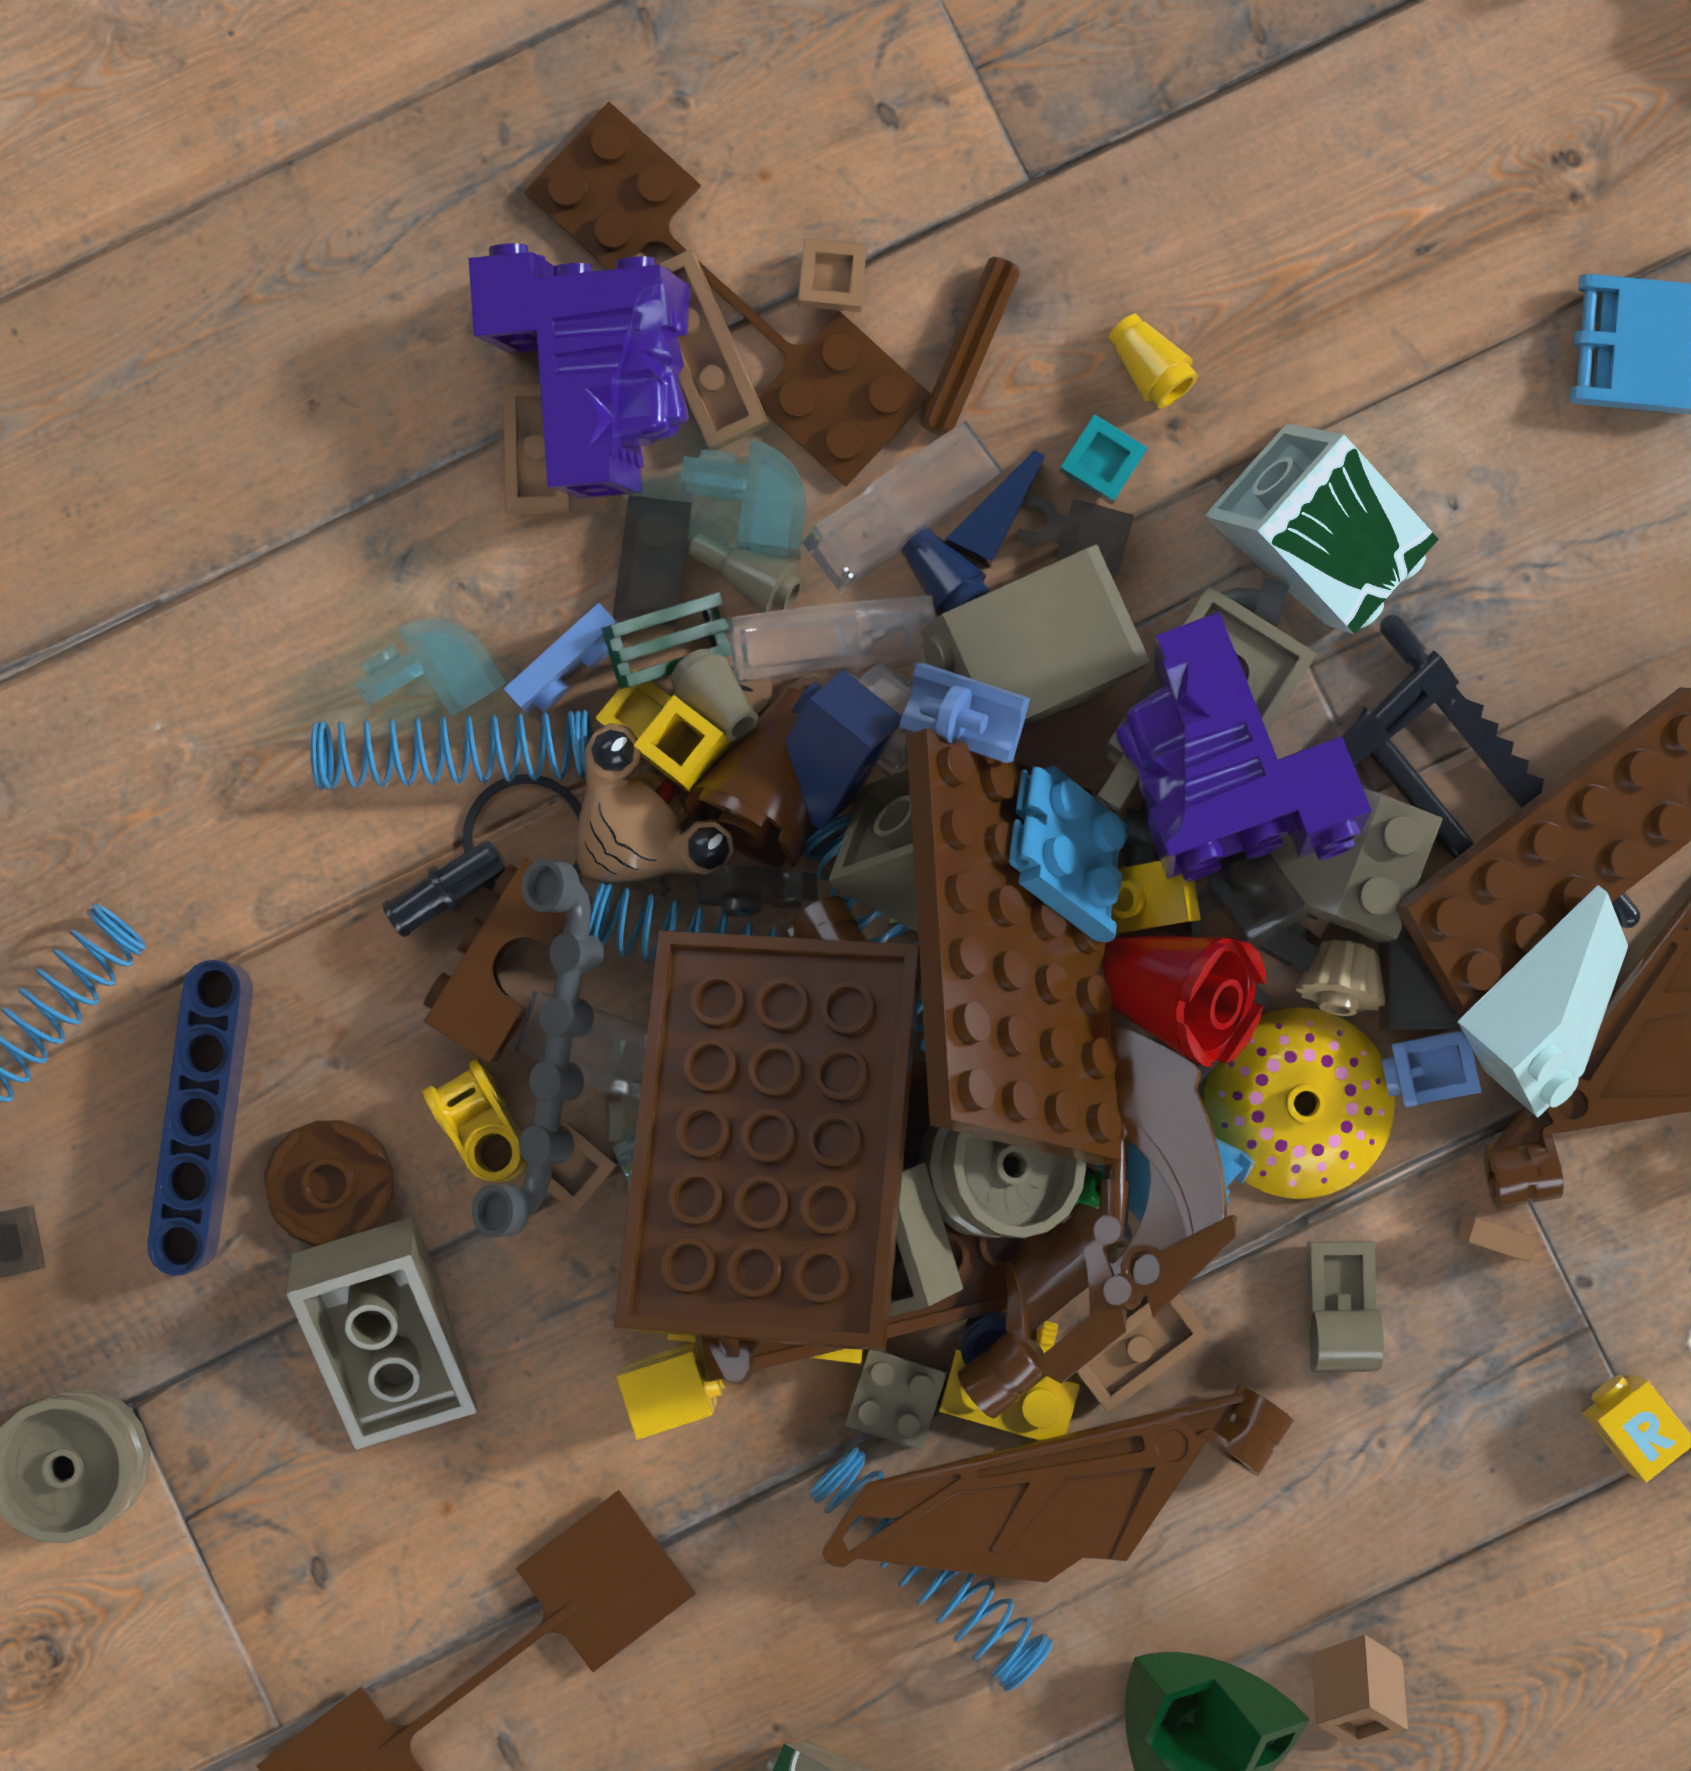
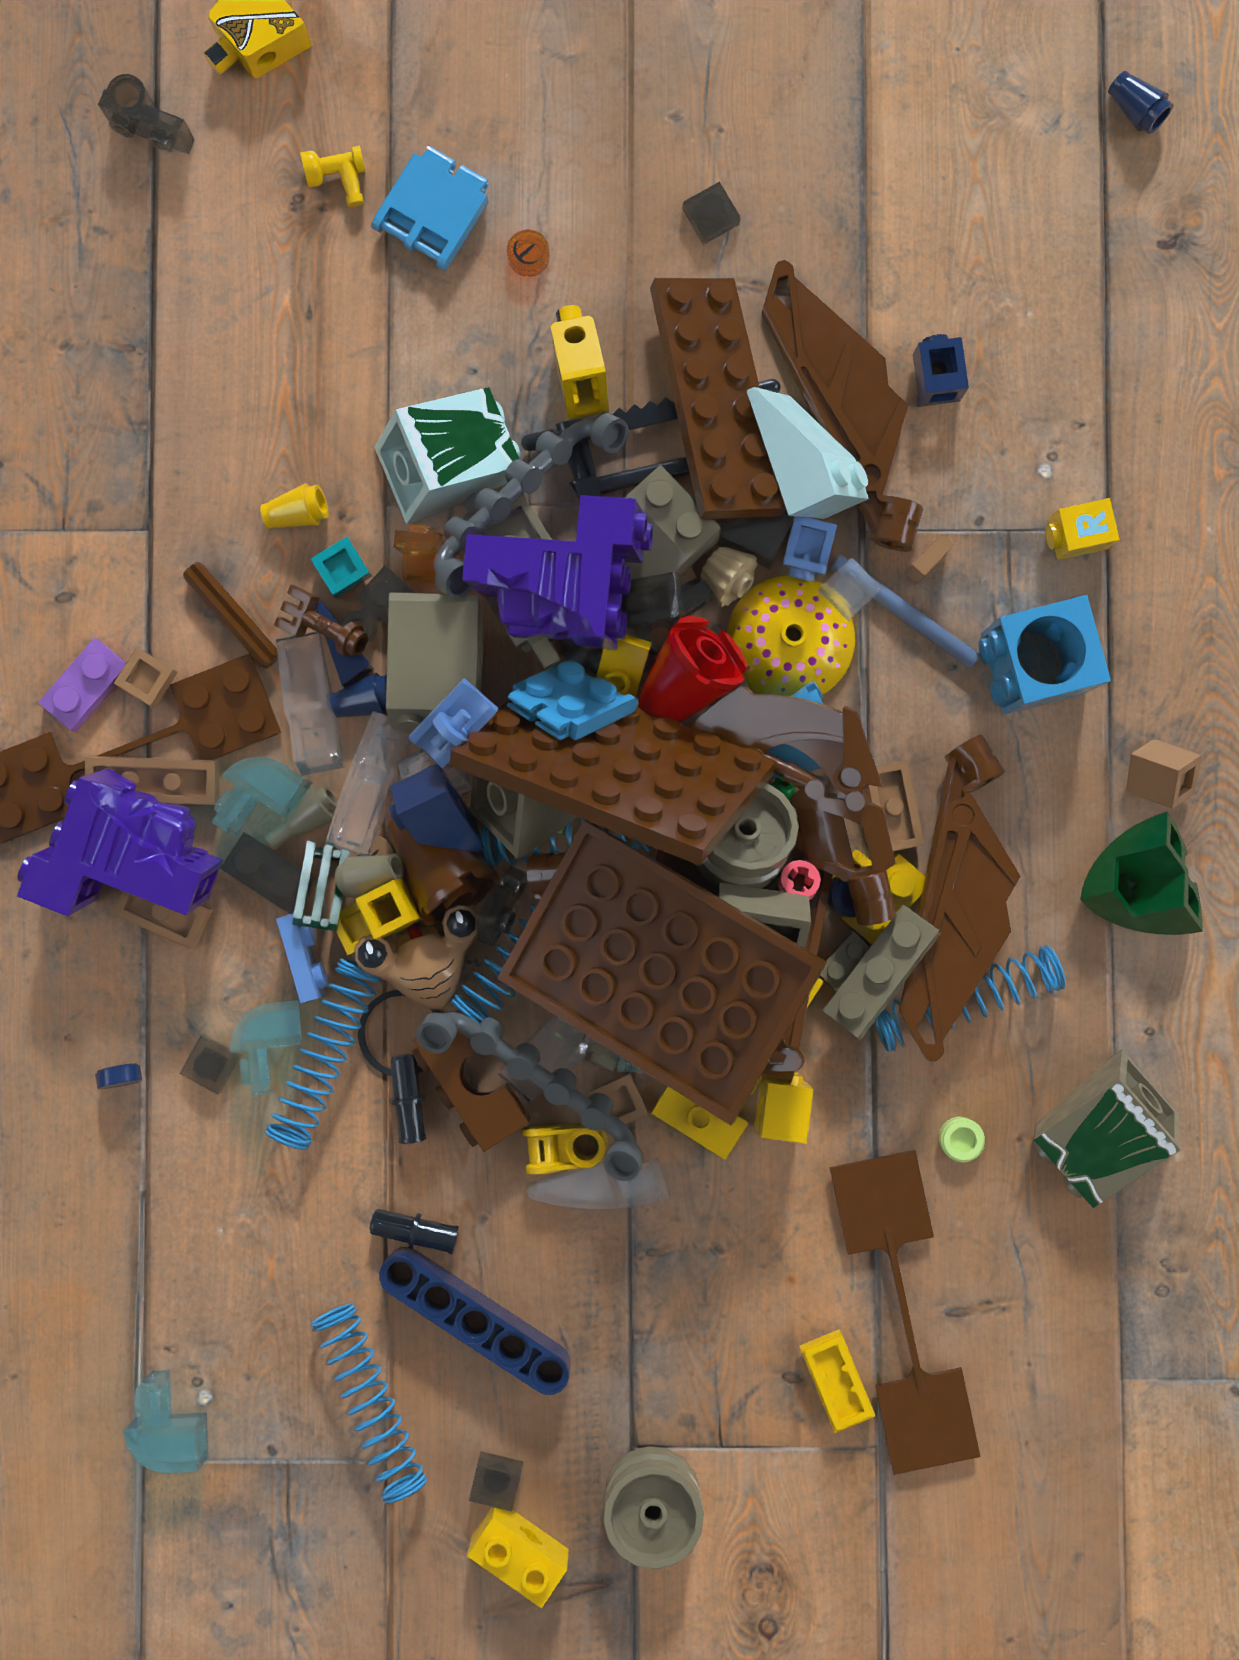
camera: 60 degrees left, 0 degrees up
(277, 979) = (414, 1230): none -> black axle
(295, 497) = (118, 1076): none -> dark blue tile
(328, 1181) = (555, 1258): reddish brown tile -> none
(343, 1632) = (837, 1381): none -> yellow plate
(367, 608) = (210, 1064): none -> clear smoke plate
(381, 1332) = (663, 1270): dark tan slope -> none
(446, 1198) = (598, 1190): none -> clear slope
(595, 1287) = (698, 1123): none -> yellow plate
(739, 1649) = (961, 1139): none -> yellowish green tile
(784, 199) = (83, 685): none -> medium lavender plate
(910, 1435) = (882, 971): none -> dark tan plate
(998, 1267) = (805, 868): none -> coral bush
(1012, 519) = (348, 638): none -> reddish brown hinge
(1171, 564) = (418, 550): none -> clear orange plate
(1343, 1307) = (930, 673): dark tan plate -> none
(1402, 1150) = (850, 589): none -> clear tile
(1411, 1237) = (920, 622): none -> sand blue bar
(1451, 725) = (606, 433): none -> dark grey bar
(1491, 1477) = (1074, 634): none -> dark azure brick
(1531, 642) = (579, 363): none -> yellow torso
(1648, 200) = (347, 164): none -> yellow piece
(1649, 501) = (528, 252): none -> clear orange tile

